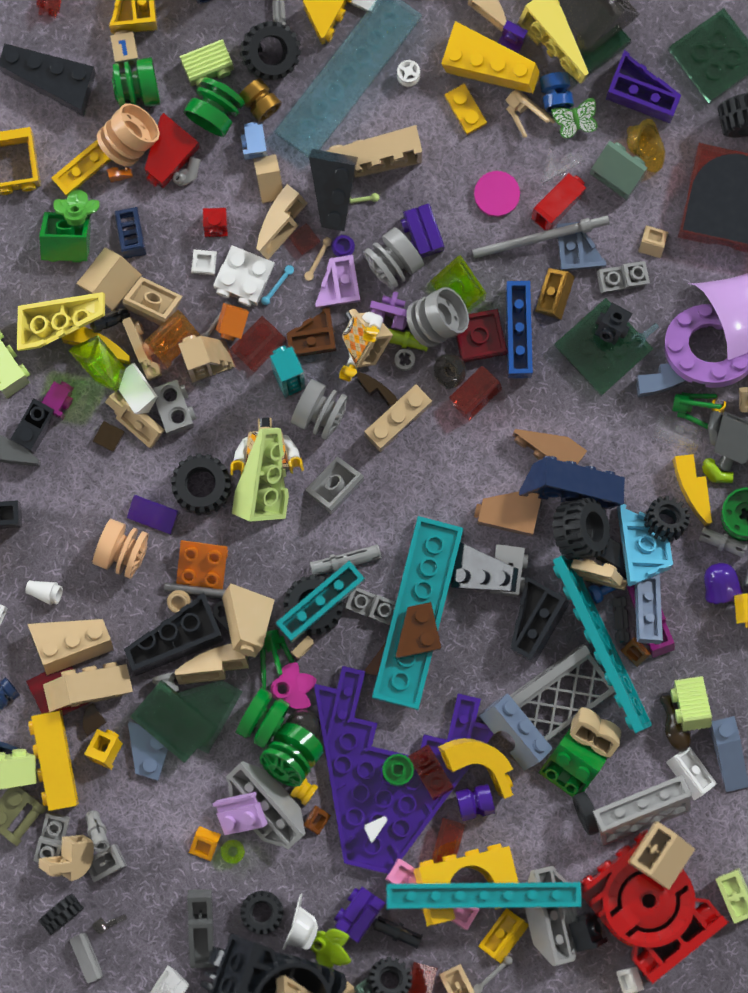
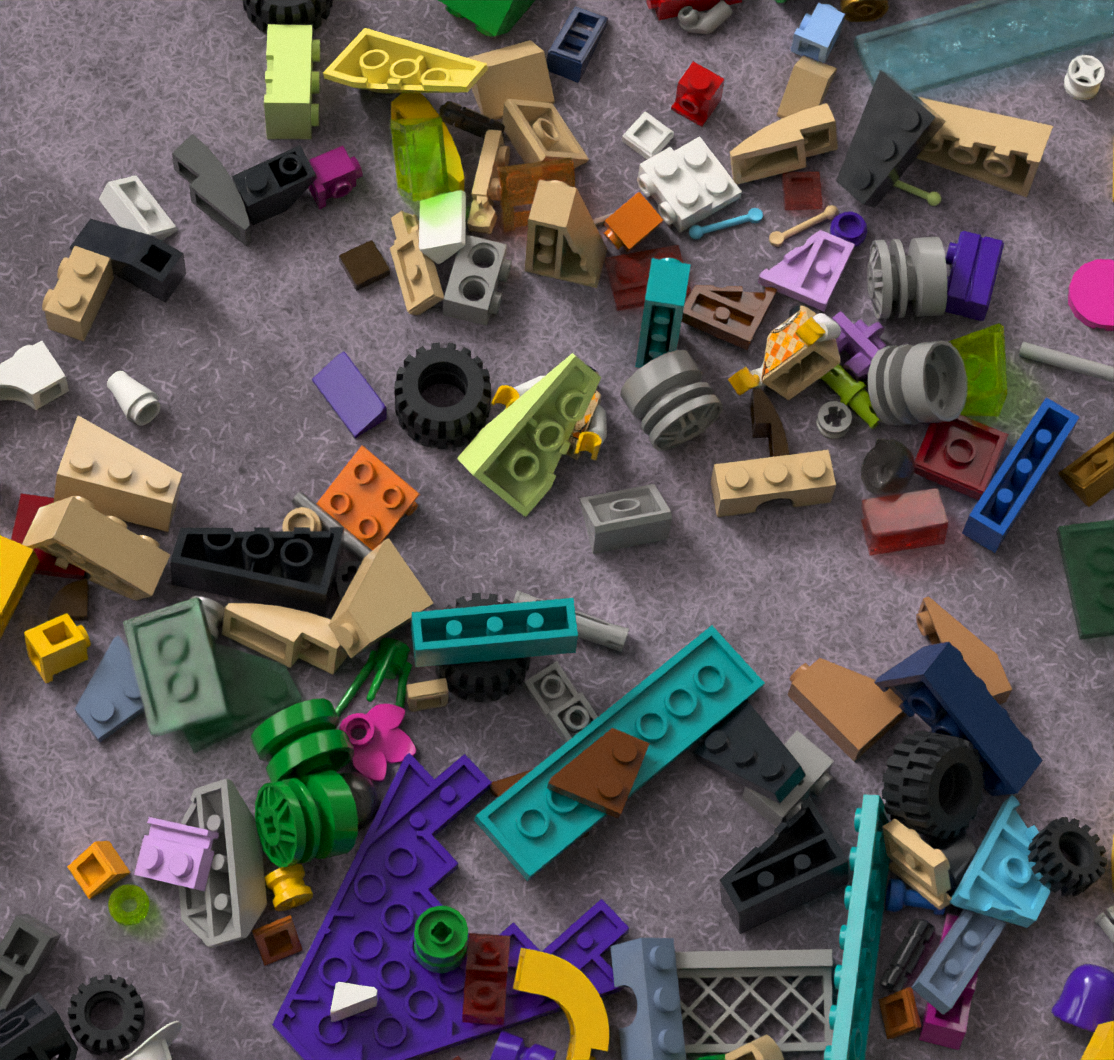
camera: 30 degrees right, 15 degrees down
(120, 548) = (273, 402): light nougat wheel -> none

